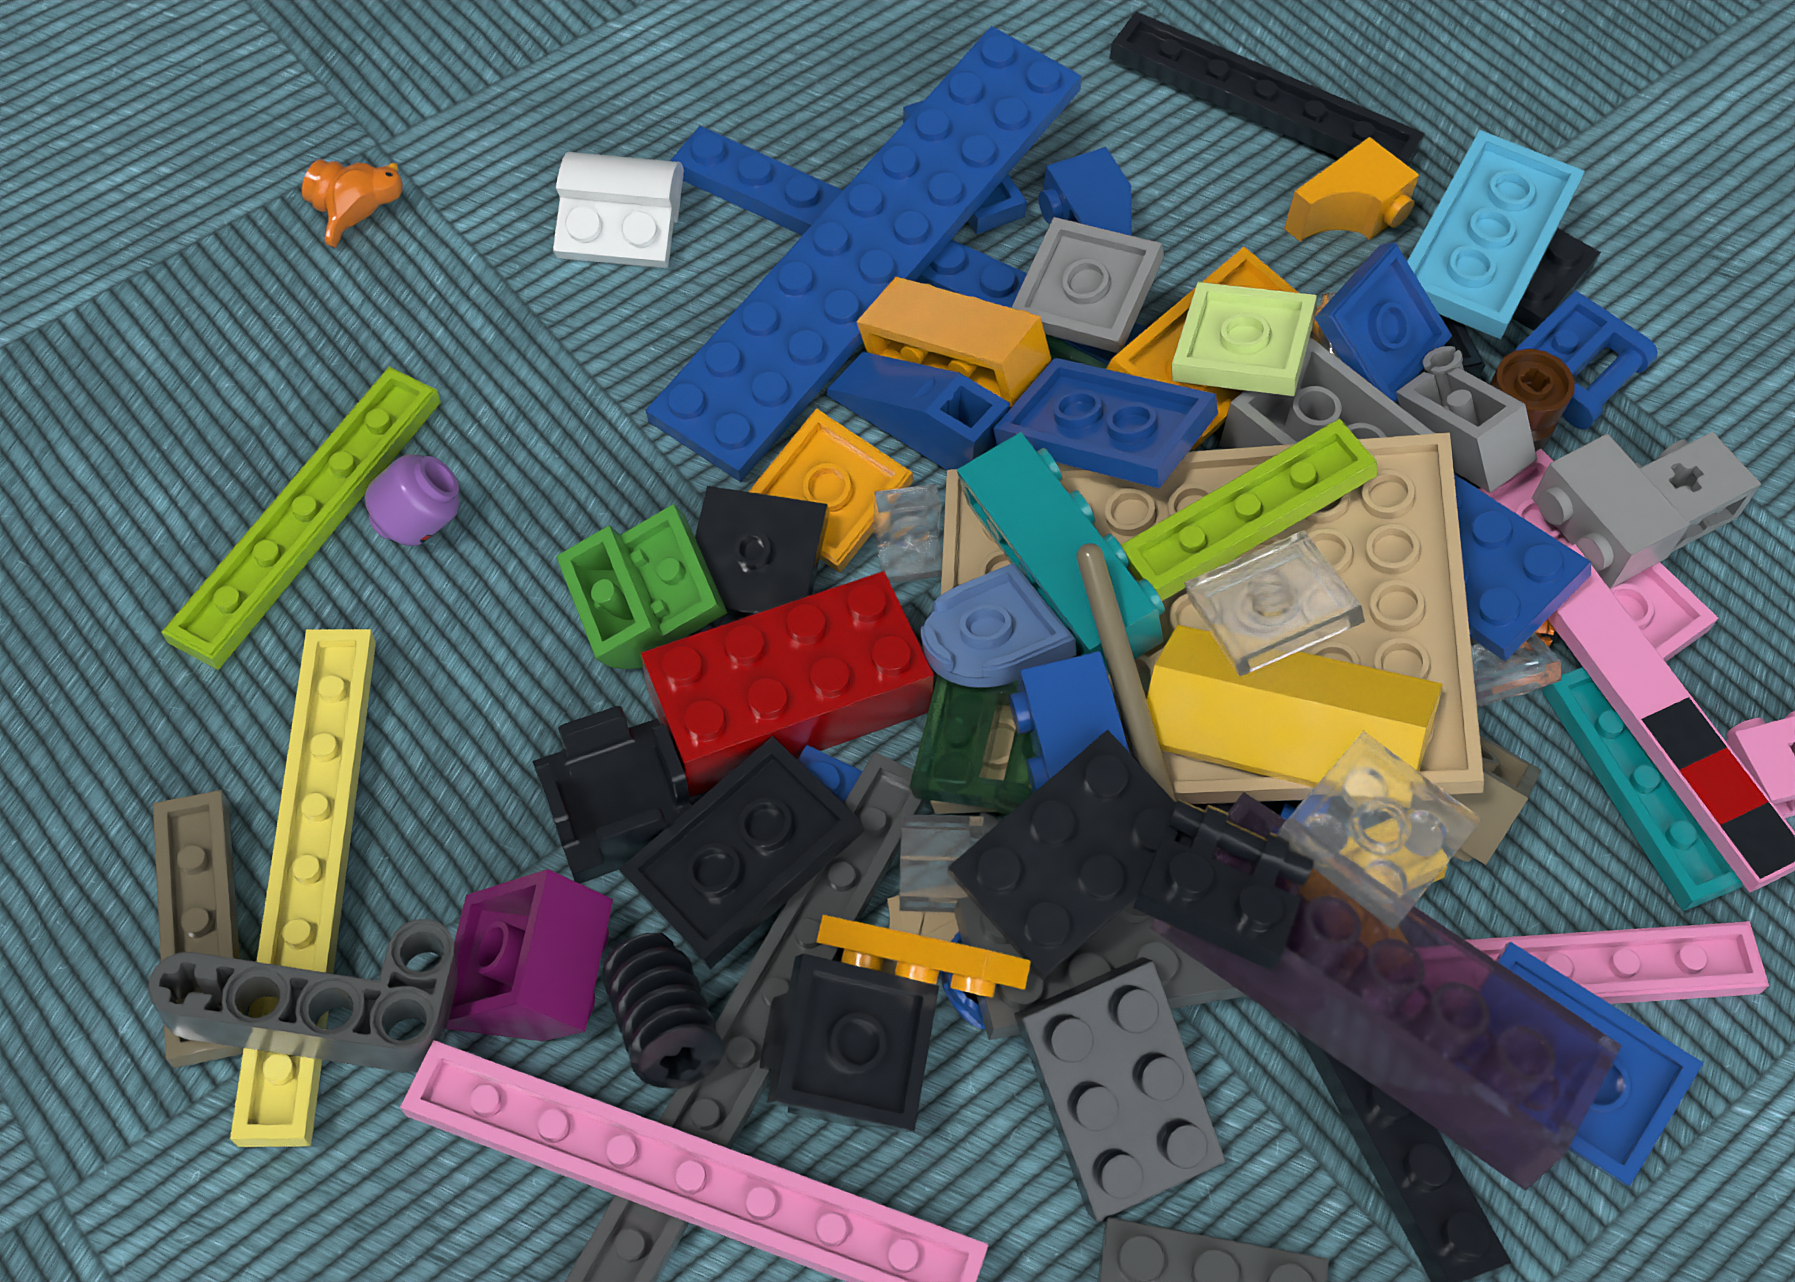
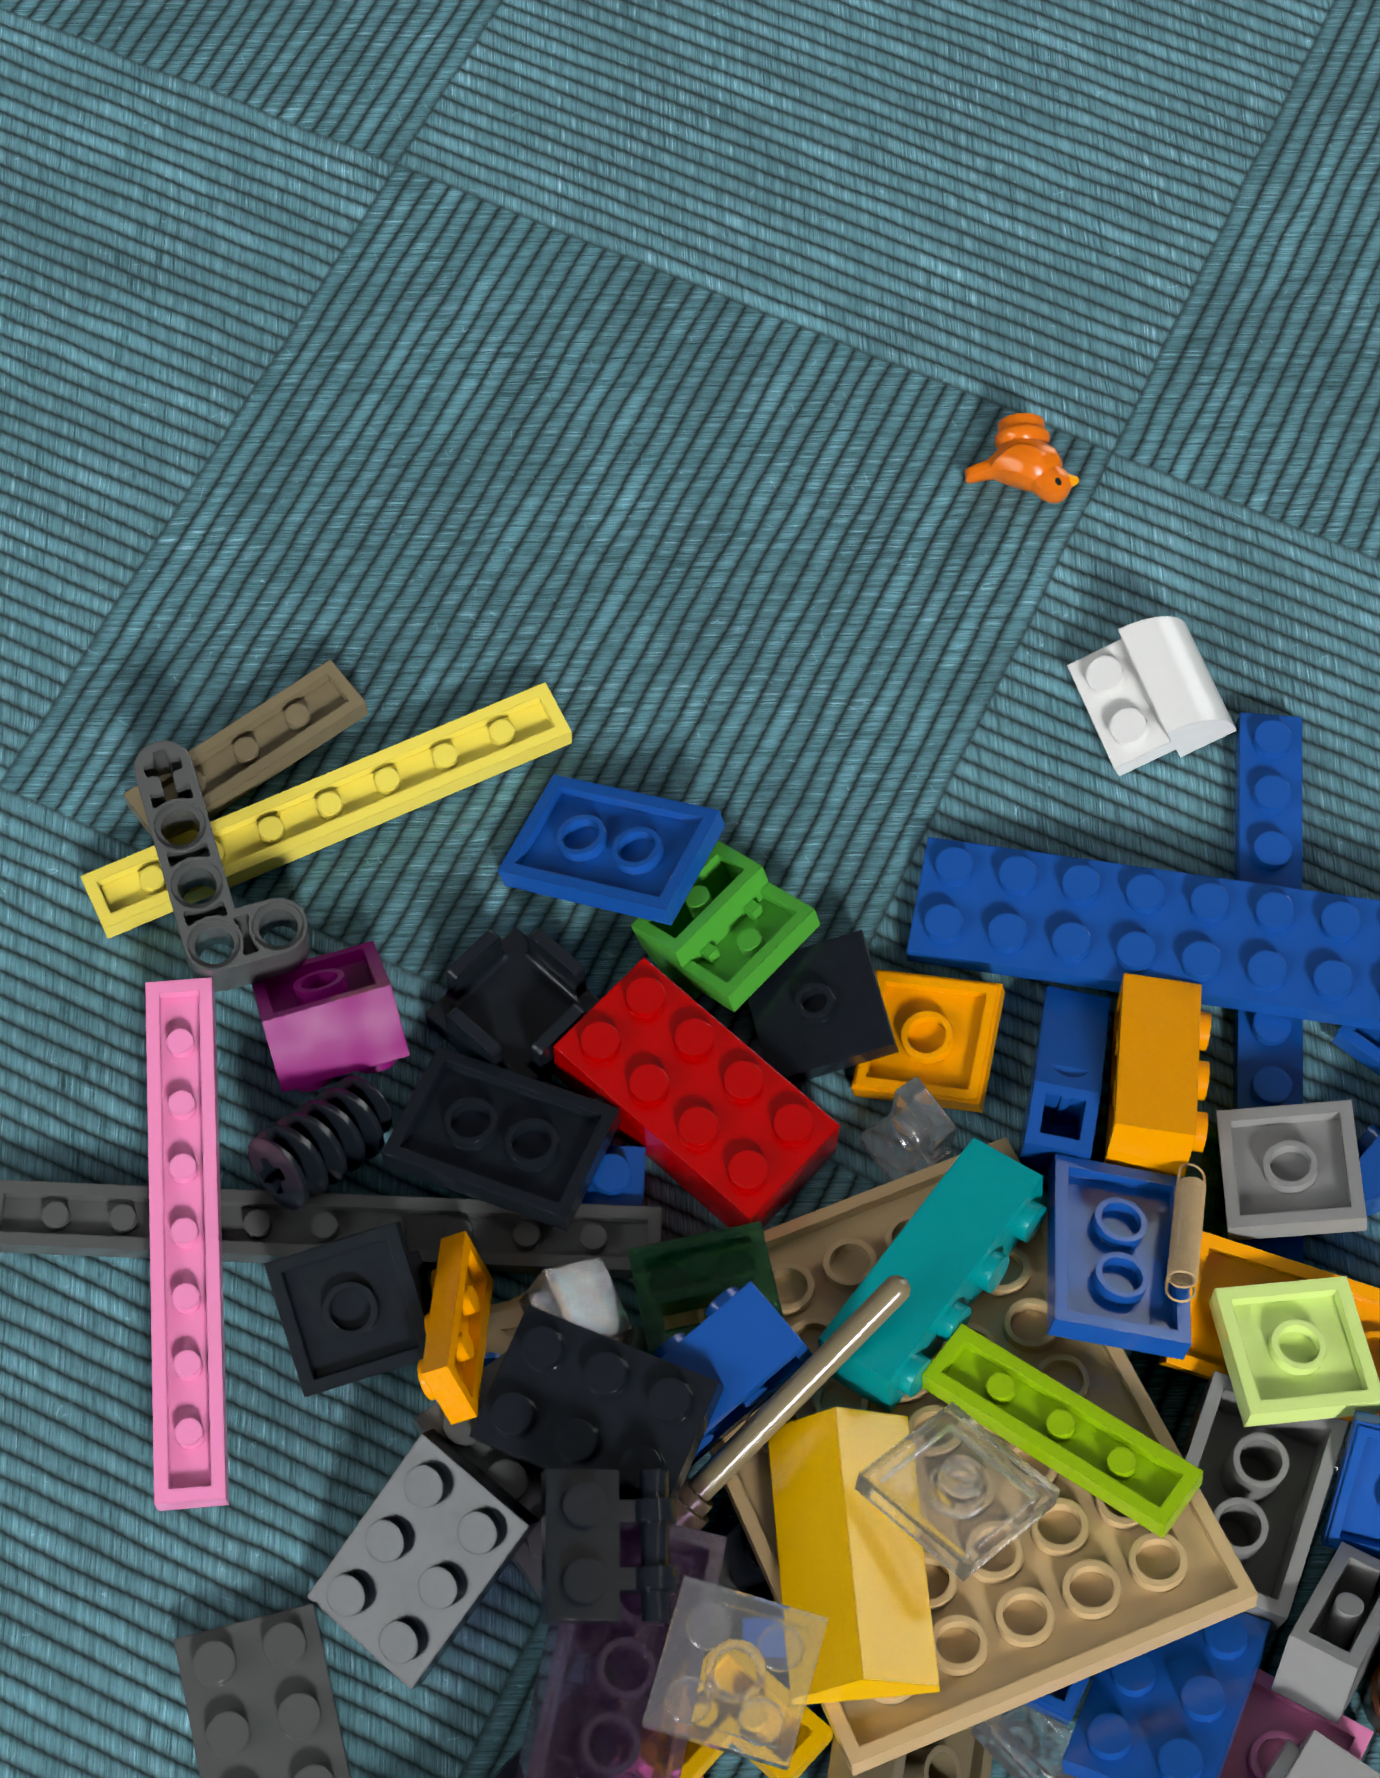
camera: 65 degrees right, 5 degrees up
(300, 519) = (671, 618): lime tile -> none
(412, 499) = (715, 693): medium lavender head -> none
(511, 642) = (612, 849): none -> blue plate
(993, 630) = (816, 1247): medium blue tile -> none
(1114, 364) = (1186, 1233): none -> tan piece

